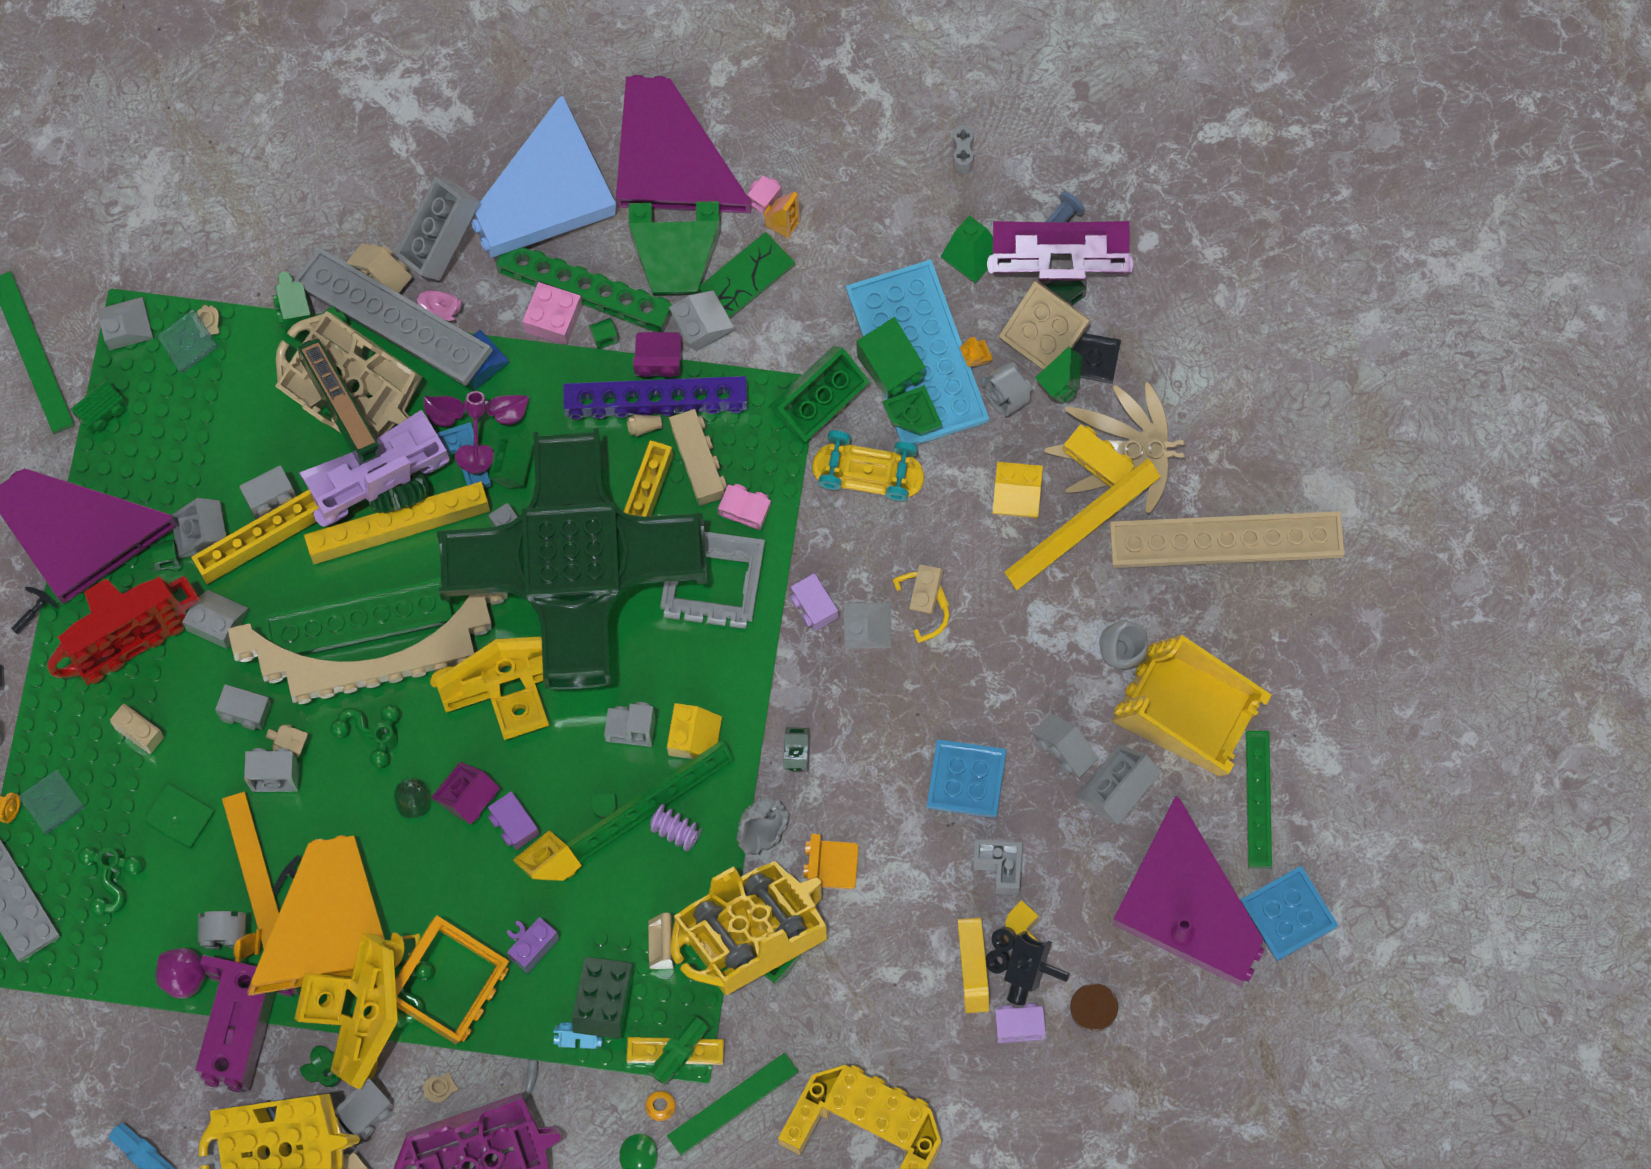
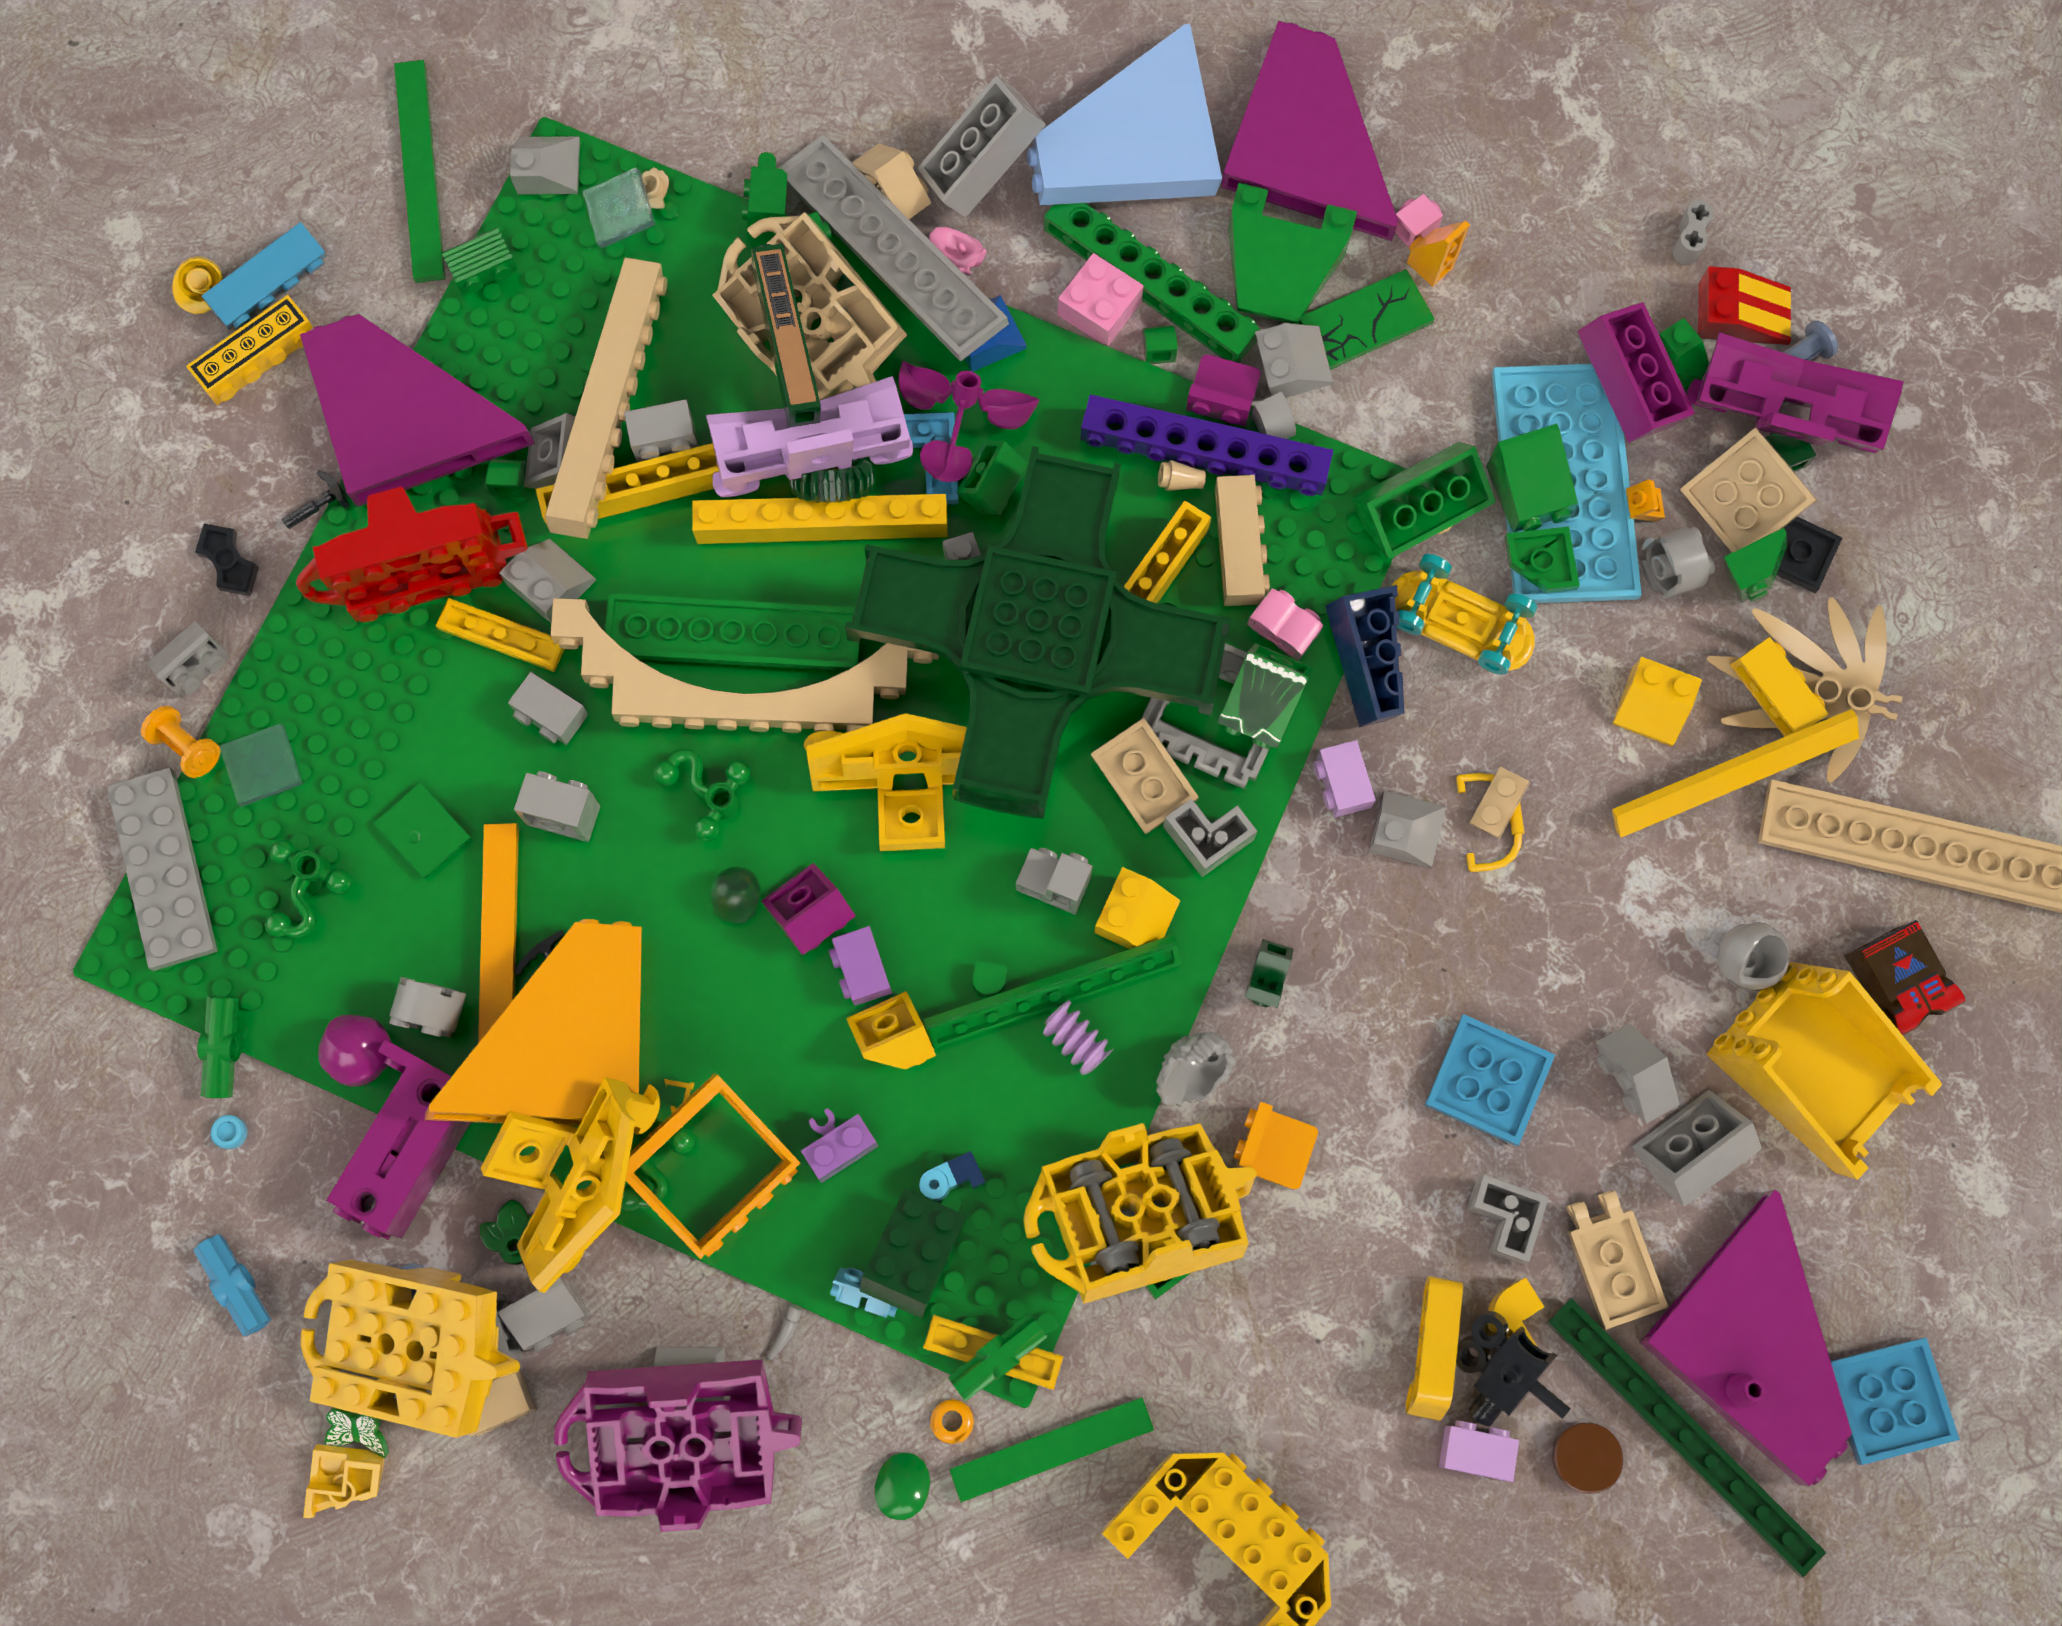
camera: 10 degrees right, 5 degrees up
(83, 998) = (219, 1047): none -> green piece
(106, 1055) = (229, 1132): none -> medium azure tile
(136, 729) = (399, 698): tan brick -> none
(193, 666) = (499, 634): none -> yellow tile
(221, 479) = (605, 399): none -> tan brick
(246, 945) = (454, 1039): light orange piece -> none
(287, 738) = (592, 769): tan piece -> none
(439, 1088) = (658, 1309): tan animal -> none
(615, 942) = (940, 1180): none -> leg
(660, 936) = (1013, 1193): tan tile -> none
(674, 638) = (1143, 775): none -> tan plate
(698, 364) = (1274, 417): none -> light grey brick
(730, 671) = (1207, 843): none -> light grey brick
(742, 560) = (1264, 696): none -> slope
(808, 511) = (1369, 652): none -> dark blue wedge
(944, 263) = (1635, 372): none -> magenta brick
(1013, 194) = (1743, 306): none -> red slope
(1082, 876) = (1615, 1262): none -> tan tile
(1155, 975) = (1687, 1438): none -> dark green plate
(1232, 631) = (1905, 977): none -> piece
(1258, 800) = (1884, 1223): green tile -> none

